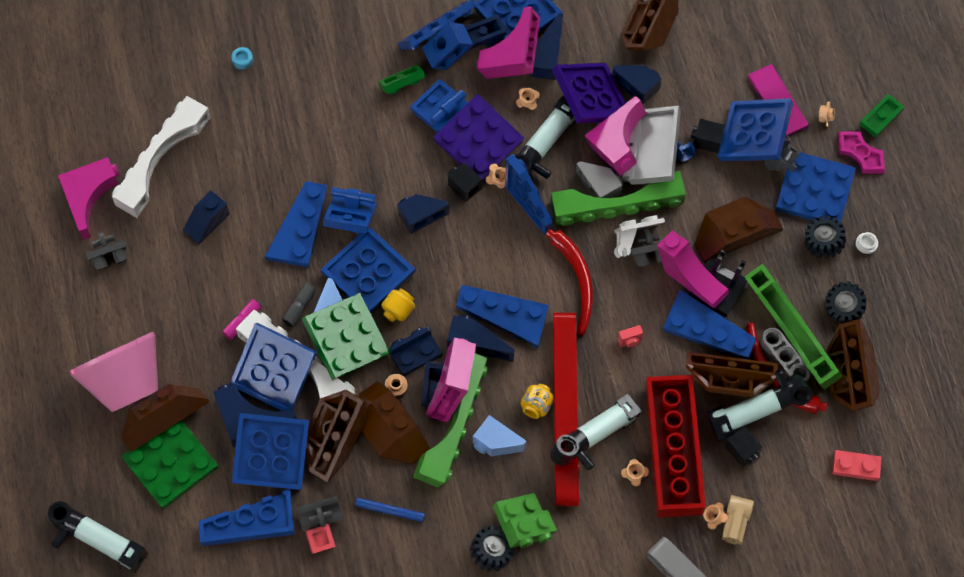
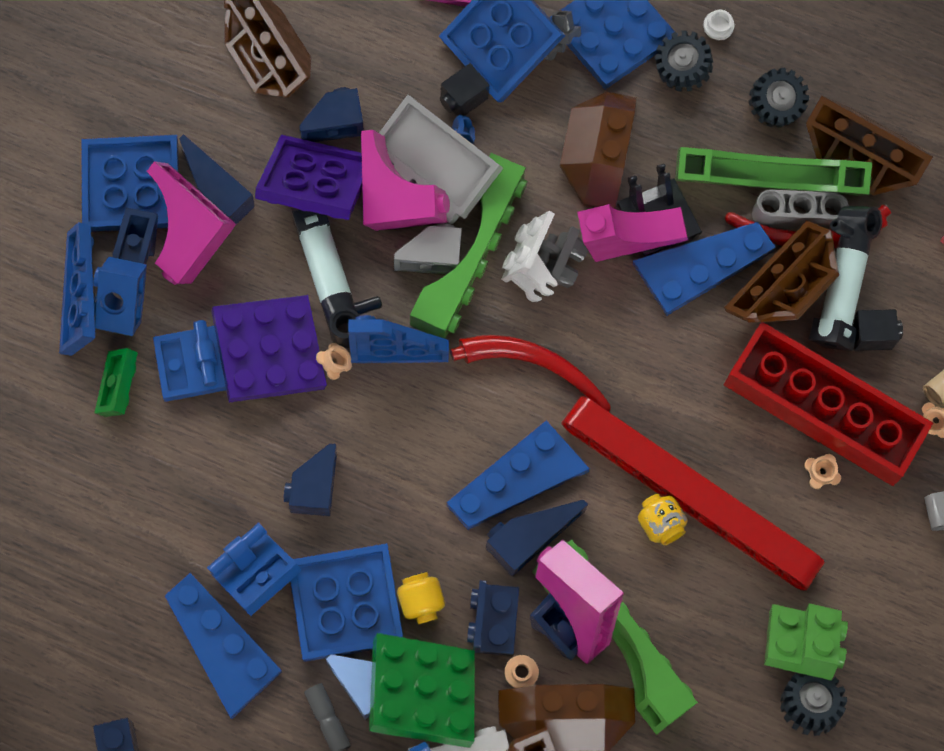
camera: 60 degrees left, 5 degrees up
(464, 181) = (313, 404): black brick -> none
(497, 439) = (676, 600): light blue slope -> none
(527, 93) = (255, 246): light nougat plate -> none
(619, 416) = (745, 437): piece -> none
(630, 337) = (655, 357): coral plate -> none

